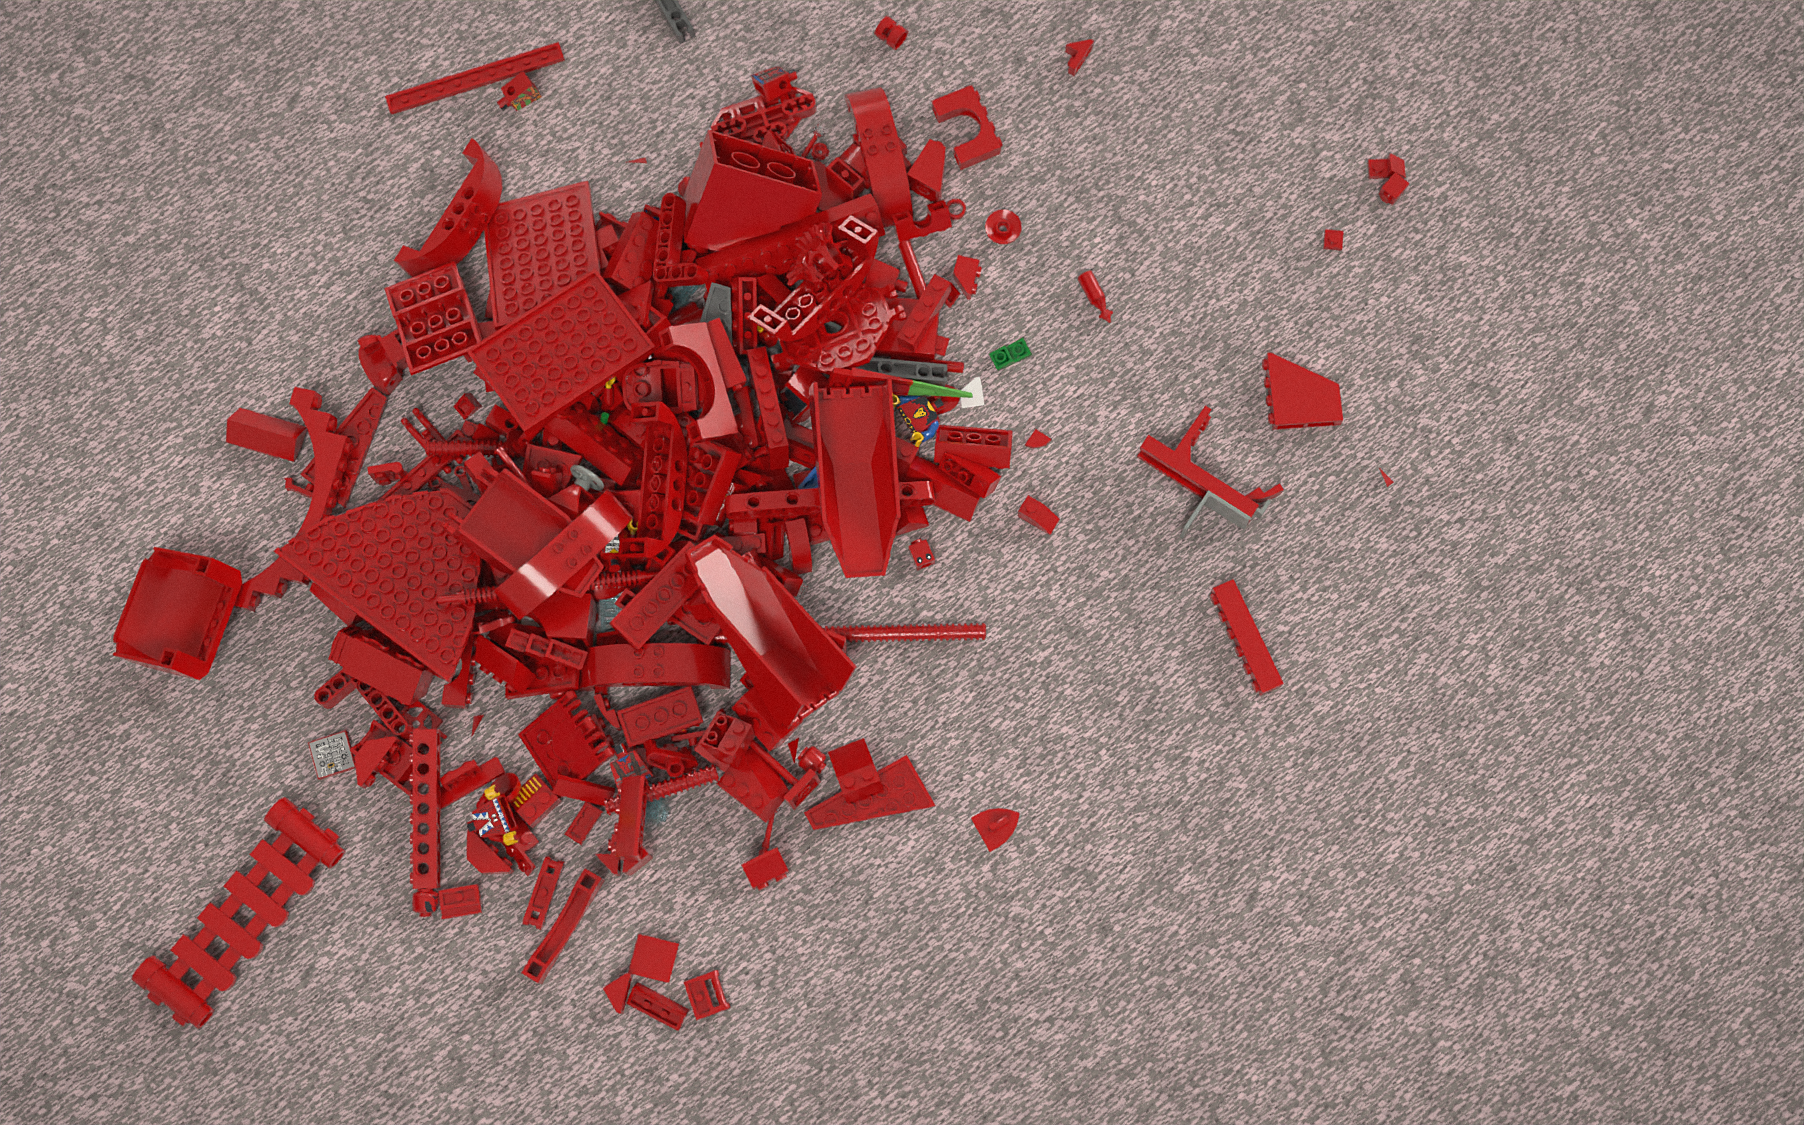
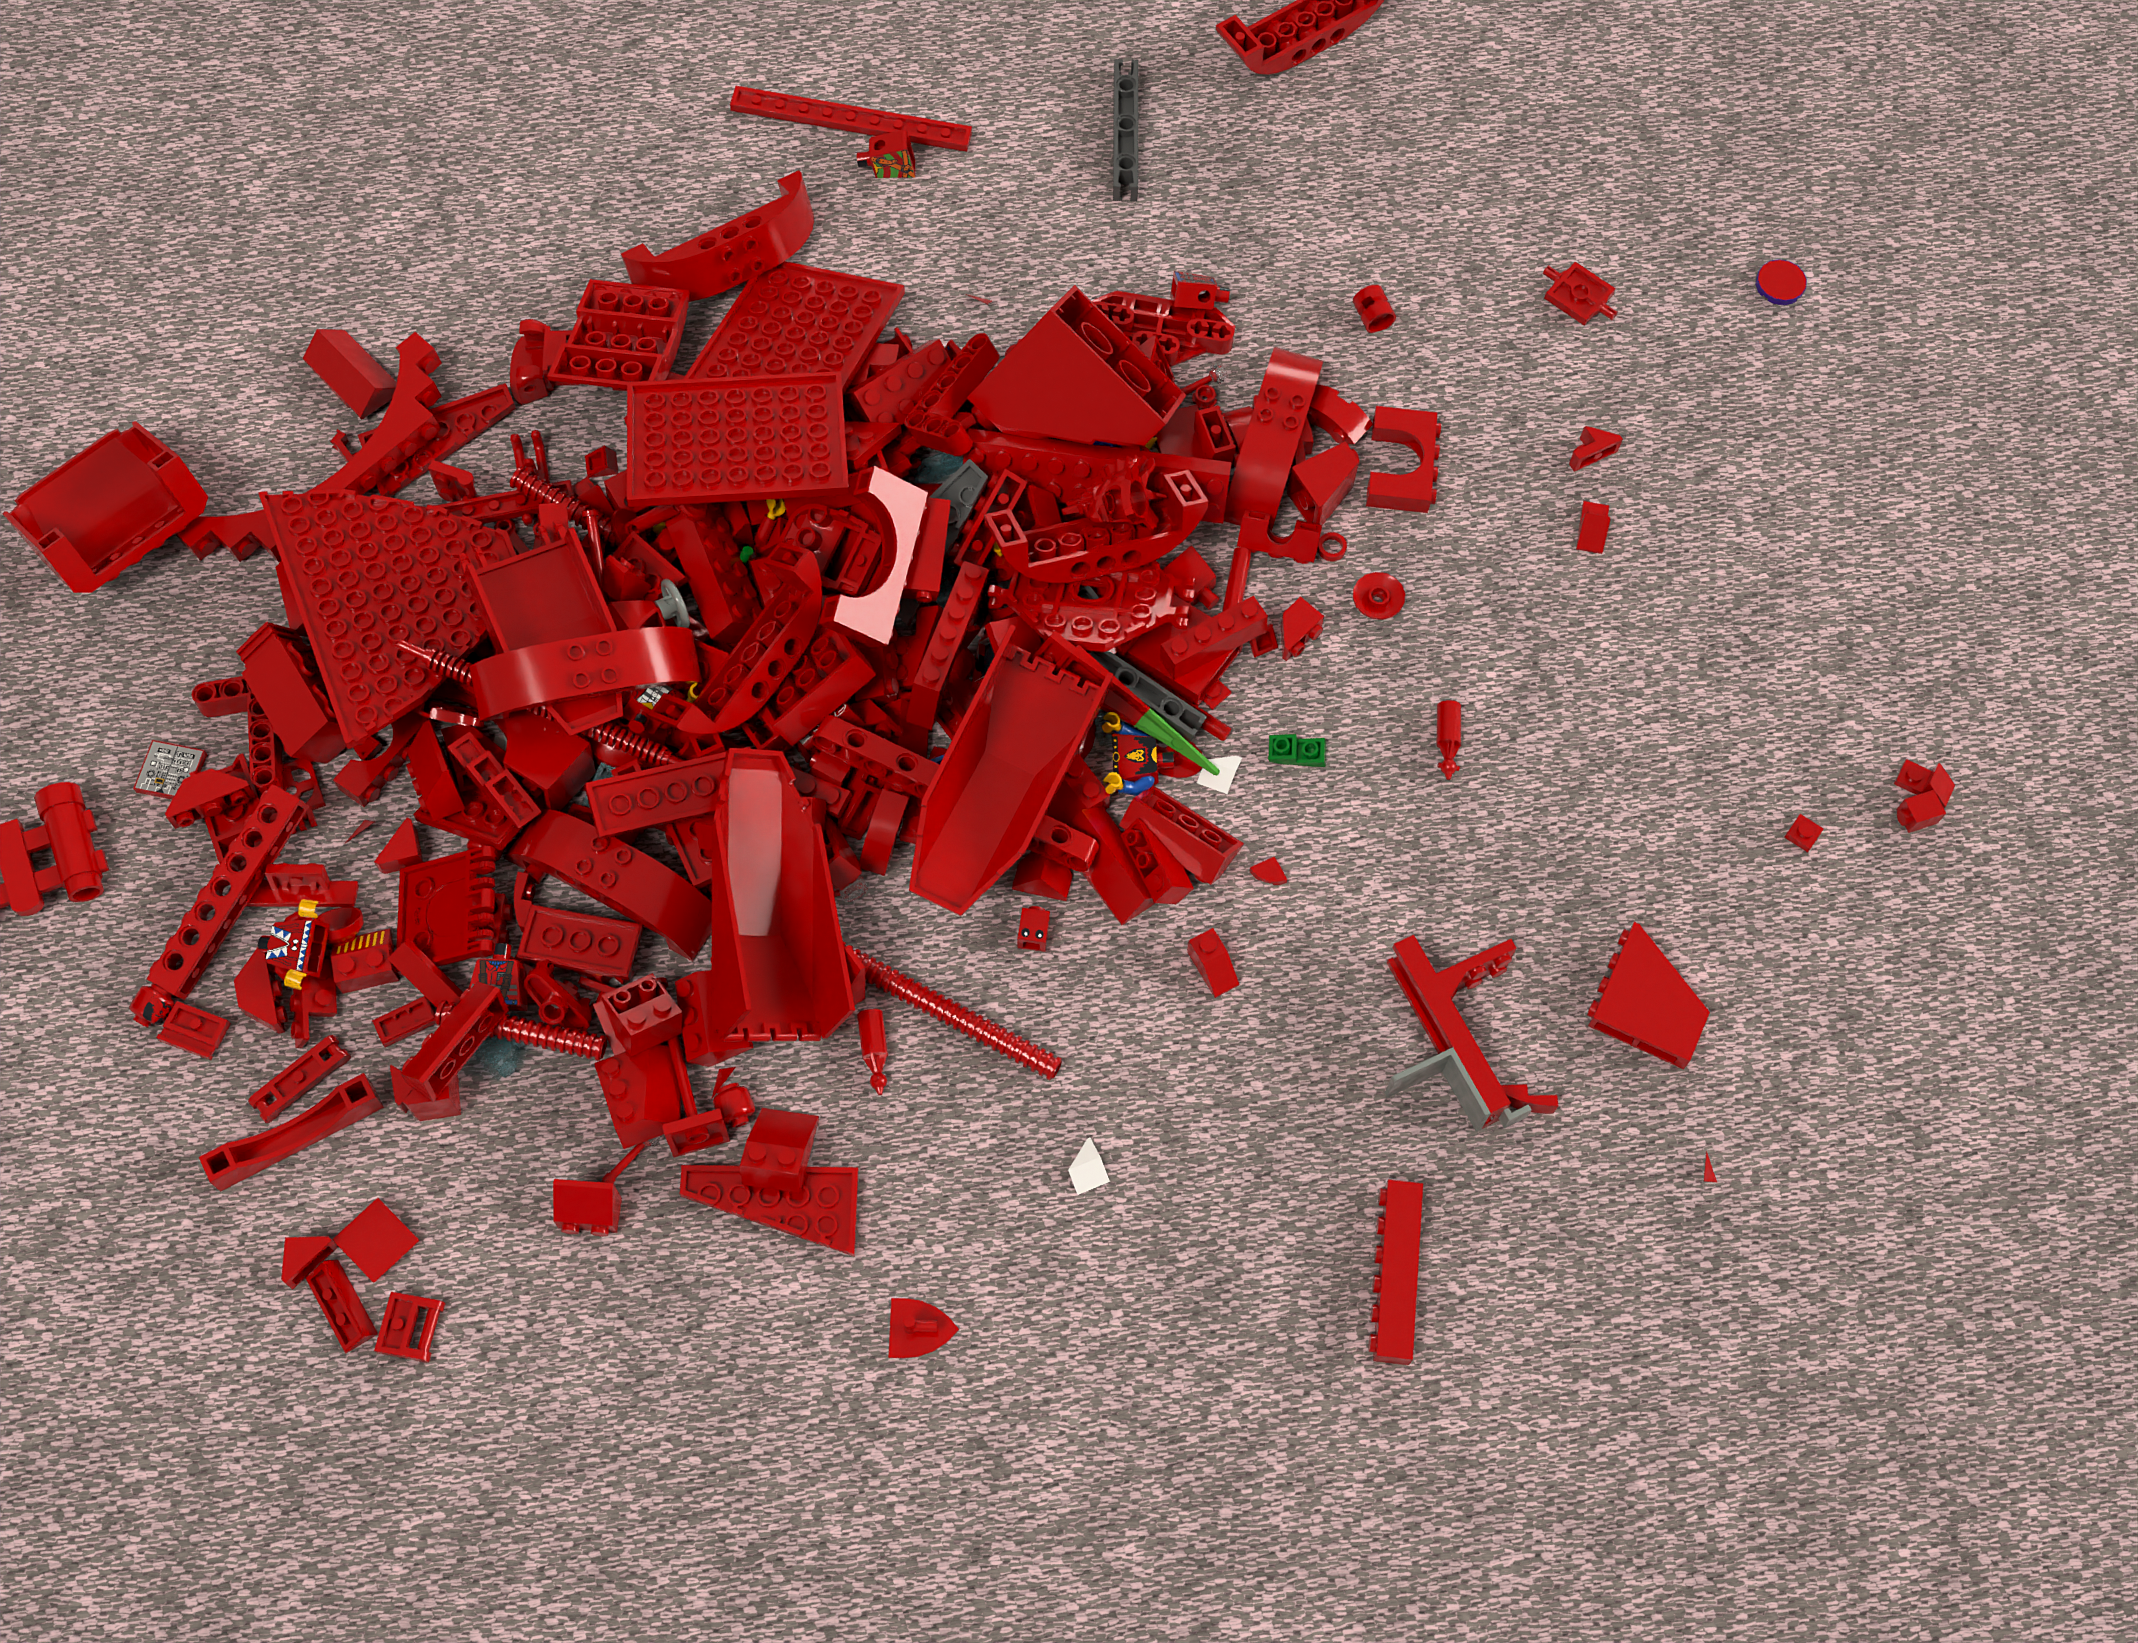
camera: 25 degrees right, 10 degrees down
(511, 722) = (401, 850): none -> red slope
(871, 679) = (873, 1045): none -> red wheel
(913, 121) = (1336, 416): none -> red brick
(1037, 678) = (1087, 1169): none -> white sticker
(1106, 108) = (1593, 527): none -> red slope

